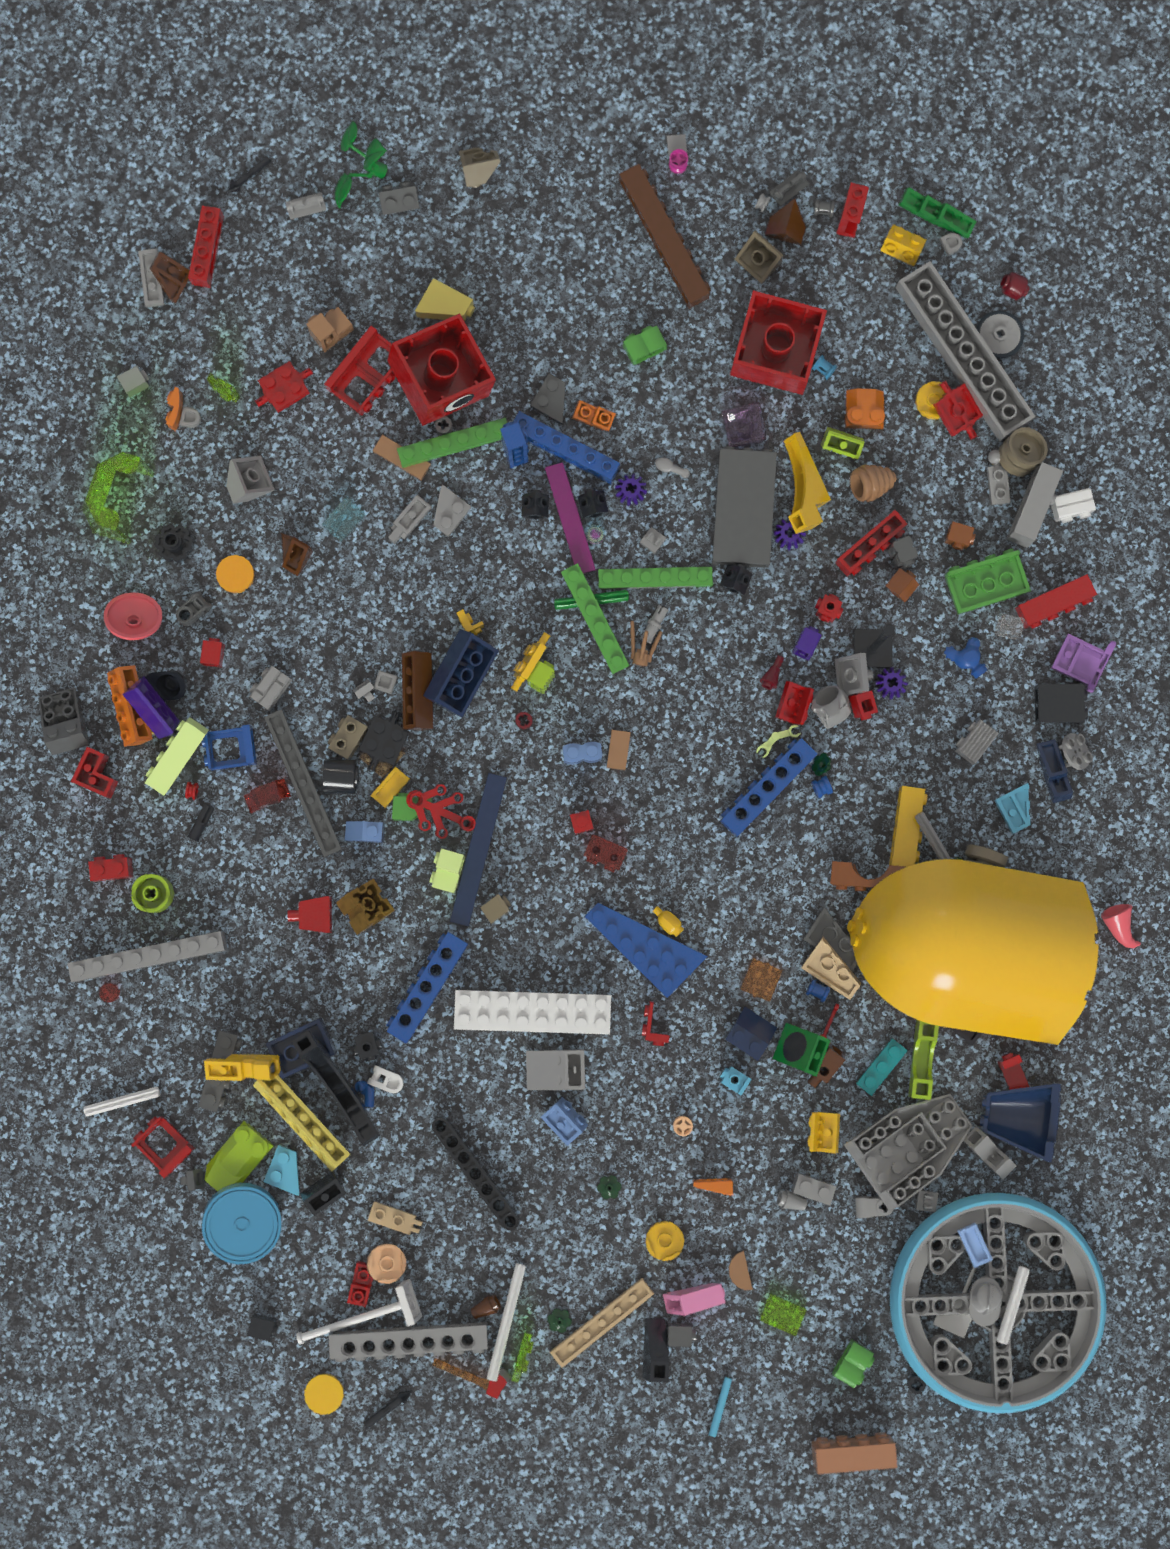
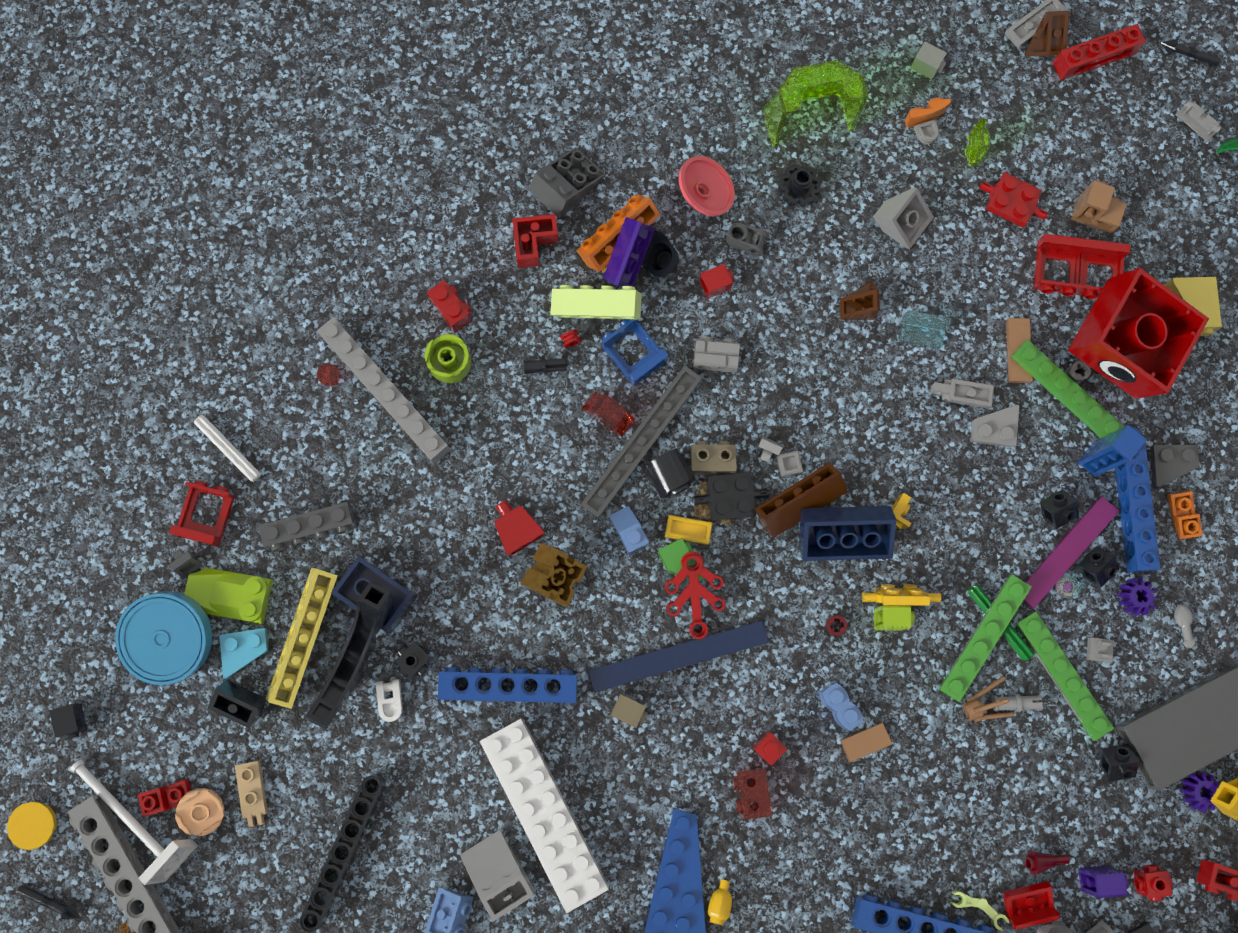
camera: 60 degrees right, 5 degrees down
(235, 574) = (805, 258): light orange tile -> none
(242, 1066) = (321, 545): yellow plate -> none
(366, 1090) = (368, 686): blue arm -> none
(448, 870) = (638, 638): yellowish green brick -> none

